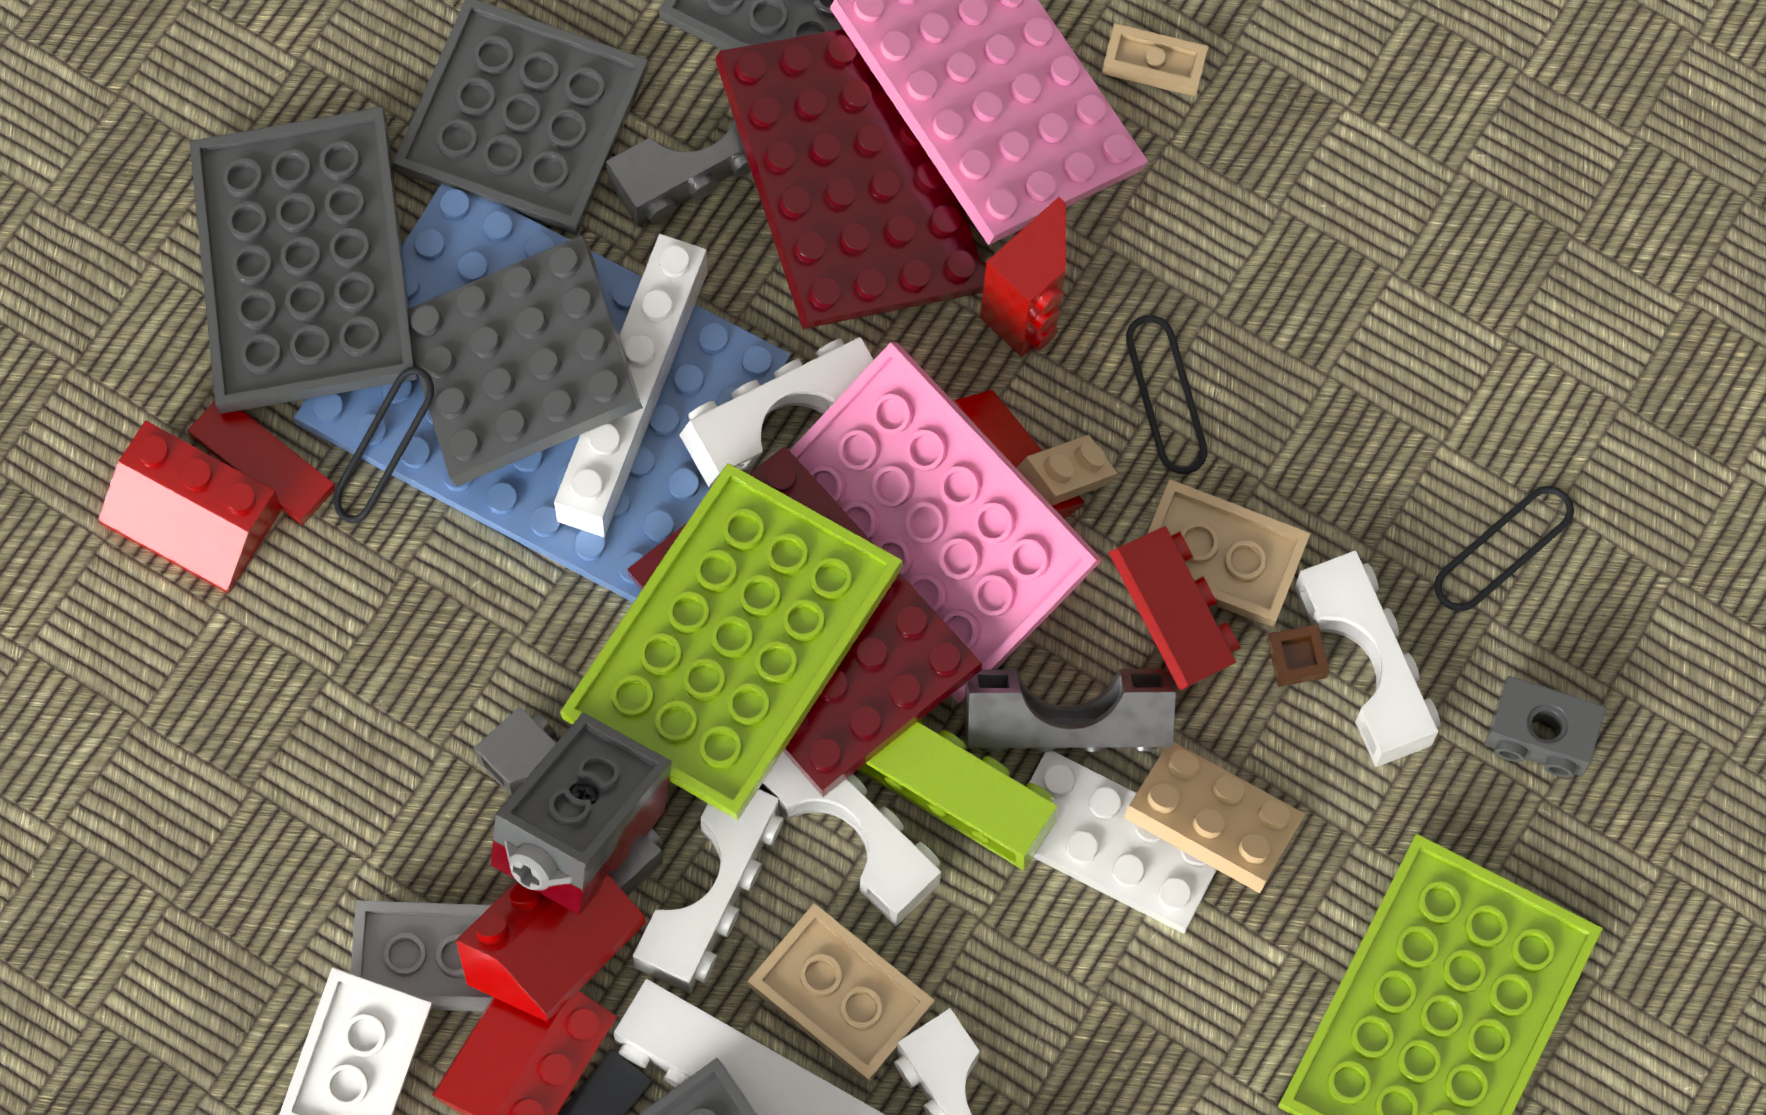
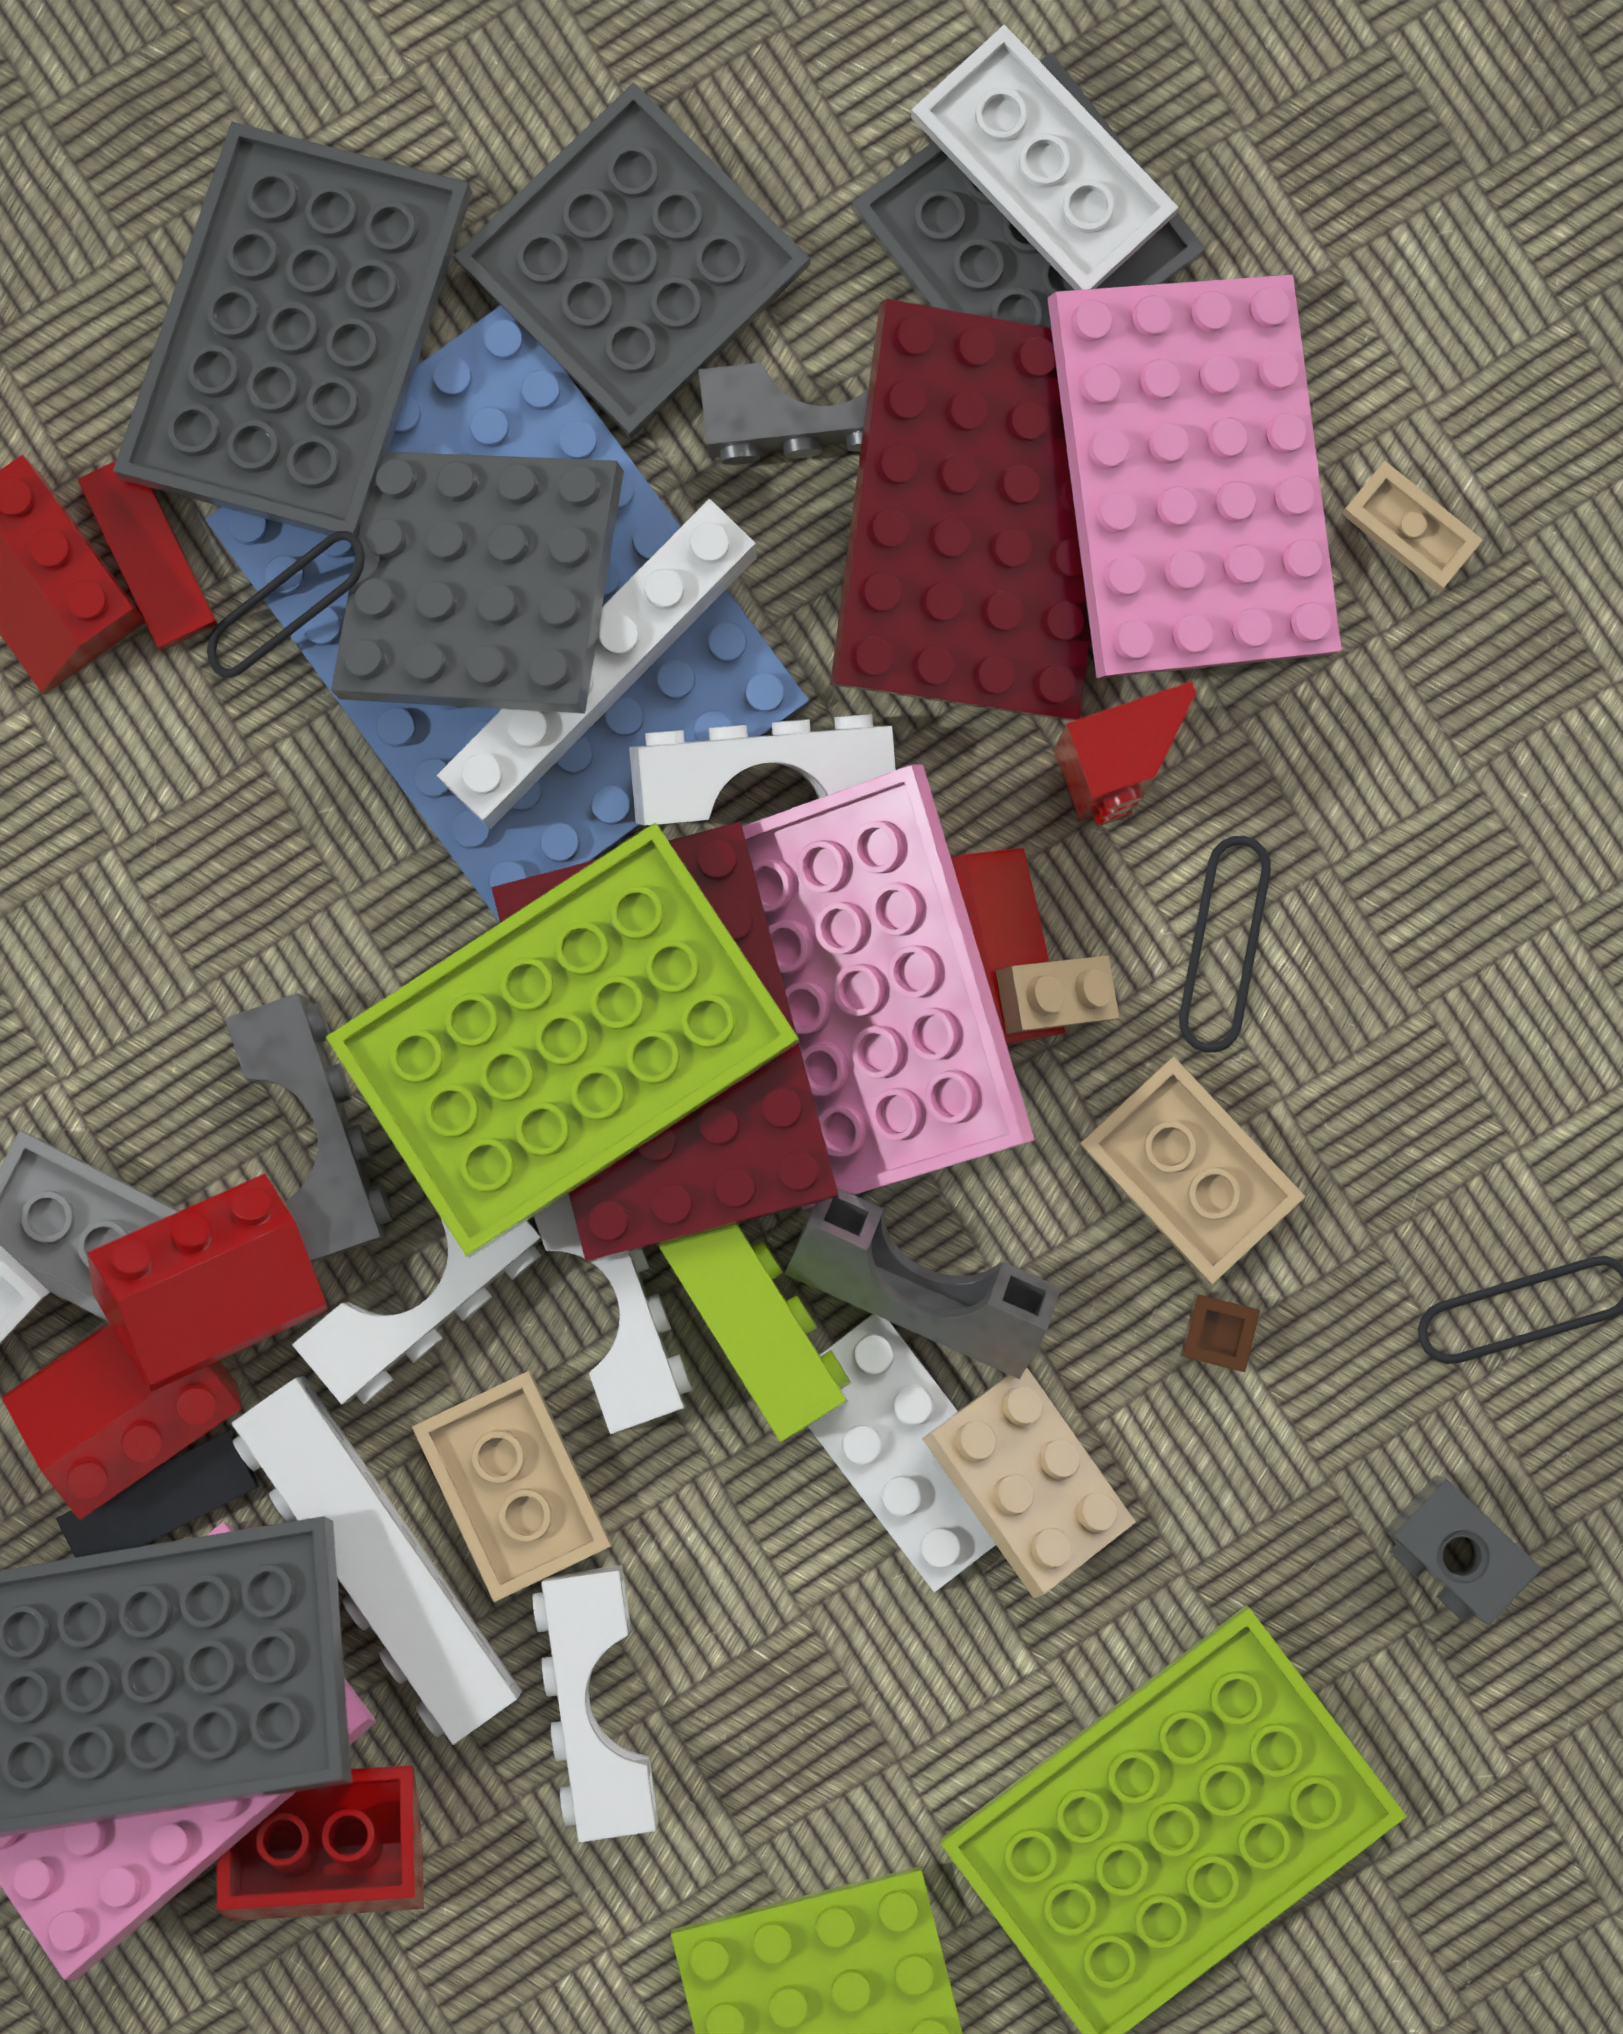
camera: 30 degrees right, 15 degrees up
(580, 813) = (286, 1174): dark grey piece -> none
(1175, 606) = (1096, 1224): red slope -> none
(1344, 602) = (1297, 1456): white arch -> none

